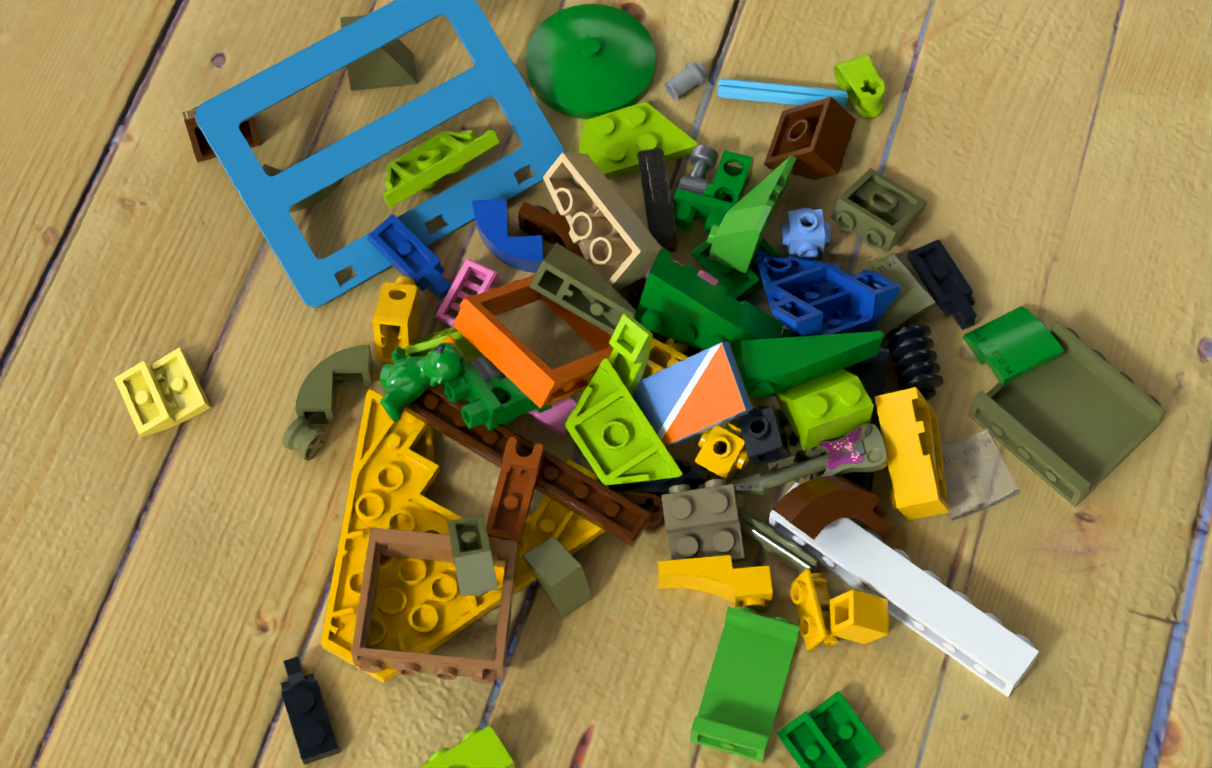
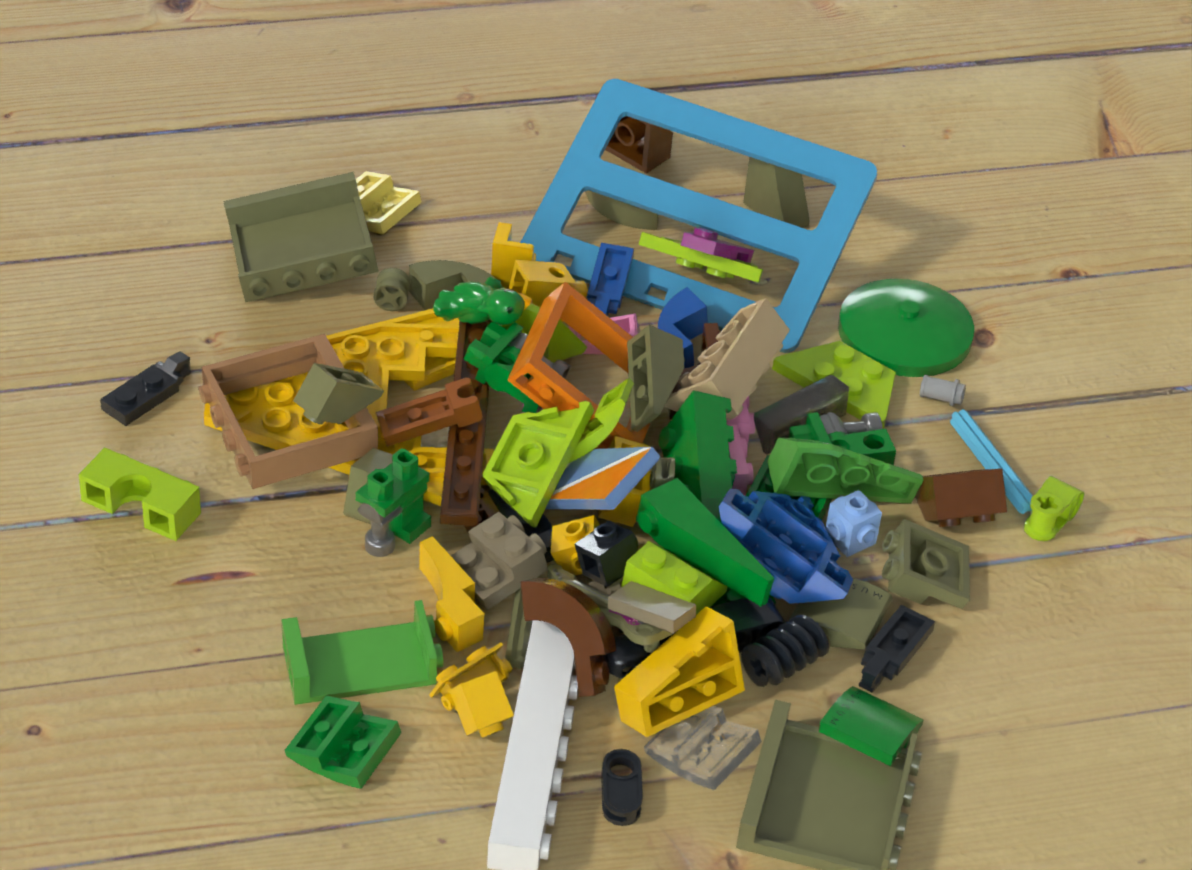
camera: 55 degrees right, 20 degrees down
(190, 484) = (300, 237): none -> olive panel
(345, 323) = (506, 252): none -> yellow panel
(435, 152) = (707, 242): none -> magenta wing
(607, 573) = (394, 503): none -> green hips
(700, 340) = (662, 472): none -> olive piece
(856, 436) = (652, 607): none -> dark tan tile
(990, 562) = (621, 794): none -> black piece

